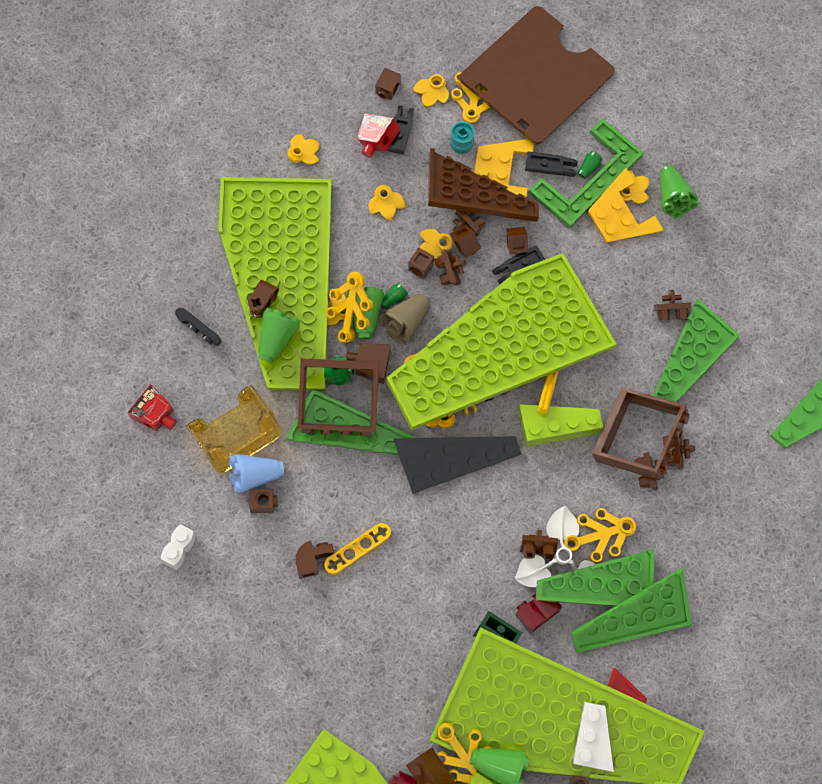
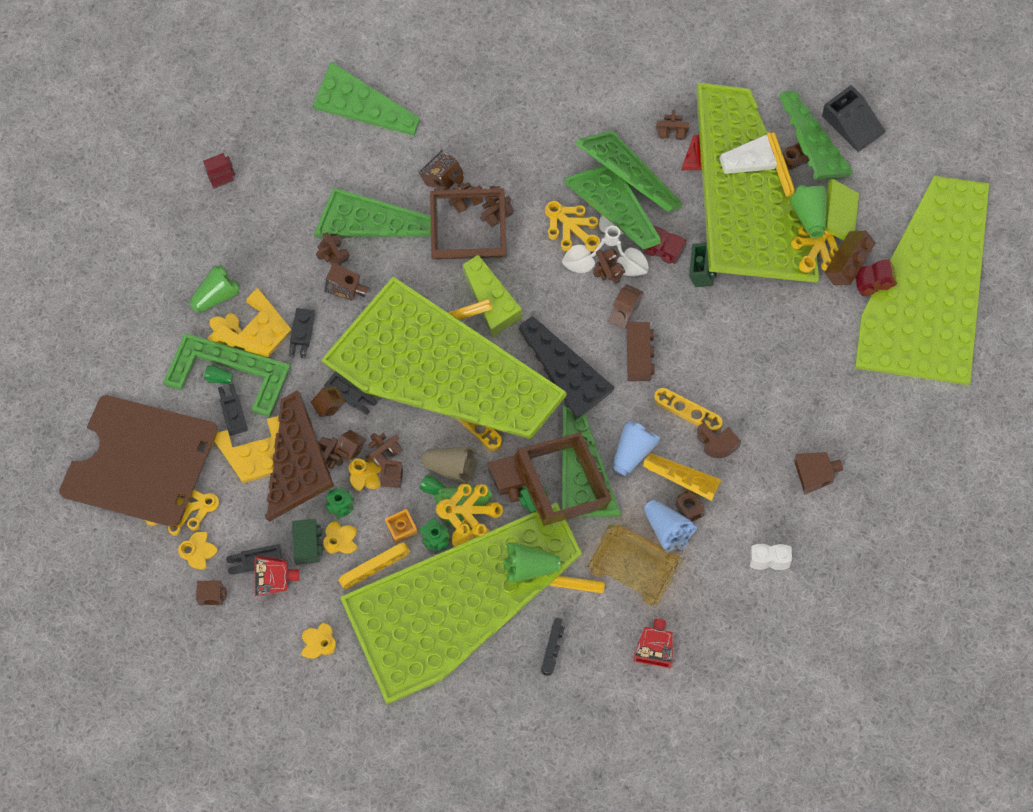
camera: 110 degrees left, 5 degrees down
(237, 632) = (816, 470): none -> reddish brown torso
(243, 377) = (579, 584): none -> yellow axle
(264, 296) = (495, 595): reddish brown piece -> none
(292, 510) = (685, 476): none -> yellow wing
(342, 270) = (434, 535): none -> green brick
(343, 479) = (633, 447): none -> light blue cone
(346, 218) = (374, 565): none -> yellow beam
(371, 253) = (401, 526): none -> light orange piece
(394, 172) = (306, 542): none -> dark green brick
(416, 212) = (339, 502): none -> green brick
(436, 532) = (639, 351): none -> reddish brown brick
(462, 137) = (241, 496): teal wheel -> none
(491, 542) = (624, 305): none -> reddish brown brick
(573, 769) = (781, 167): none -> yellow axle
(601, 250) = (301, 331): none -> black hinge
(636, 295) = (344, 283): none -> reddish brown torso
(670, 687) = (680, 127): none -> reddish brown hips
(712, 439) = (442, 171): none -> reddish brown torso
(800, 239) = (219, 170): none -> dark red brick

